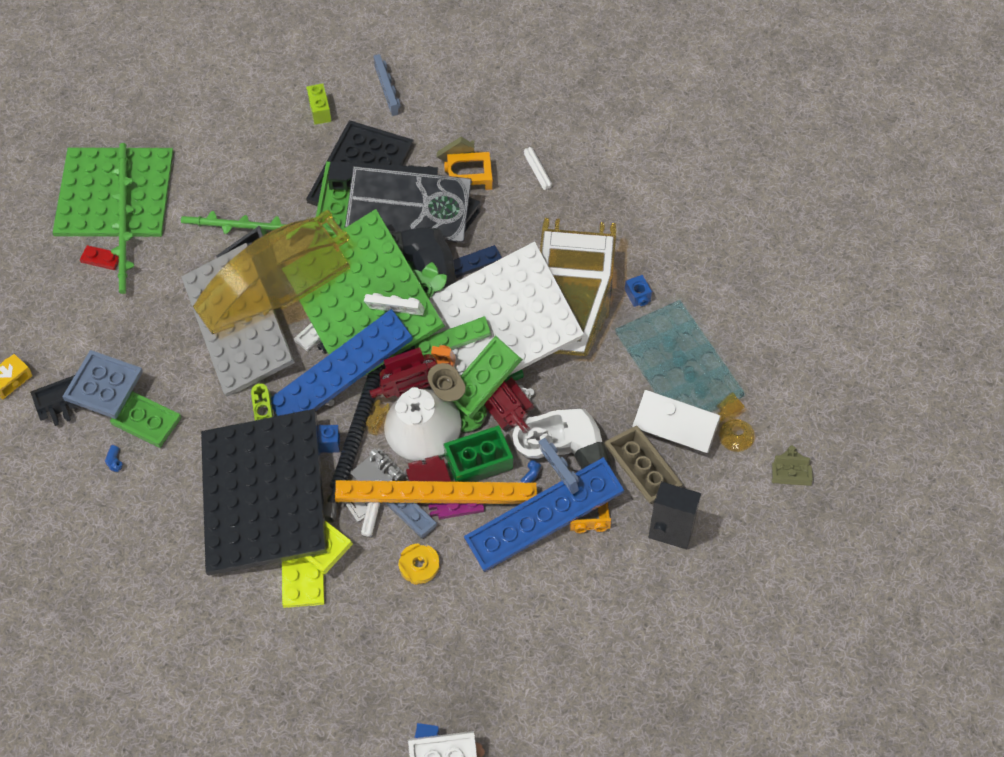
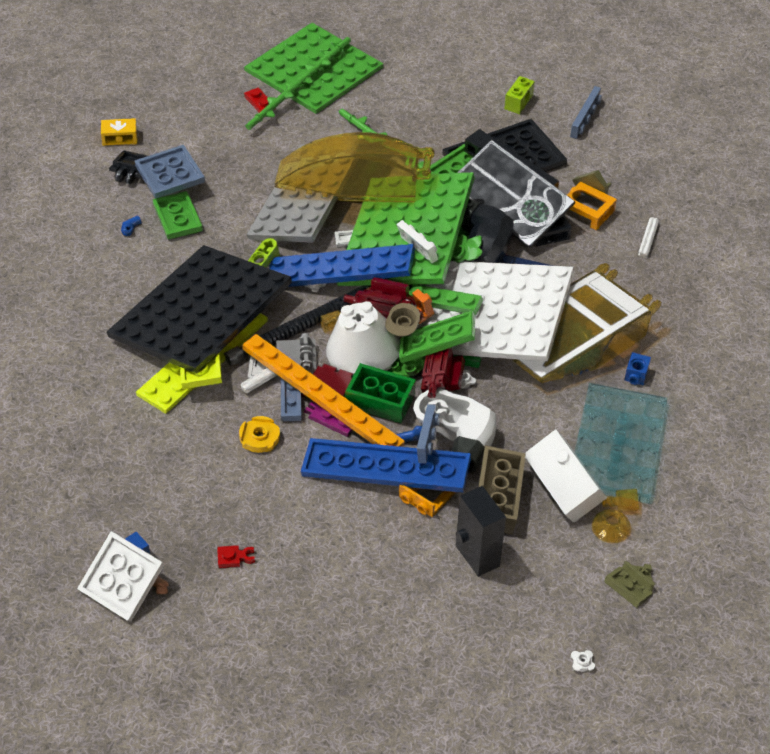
camera: 40 degrees right, 10 degrees down
(329, 438) = (285, 308): blue brick -> none
(501, 681) = (231, 556): none -> red plate
(811, 556) = (581, 666): none -> white plate

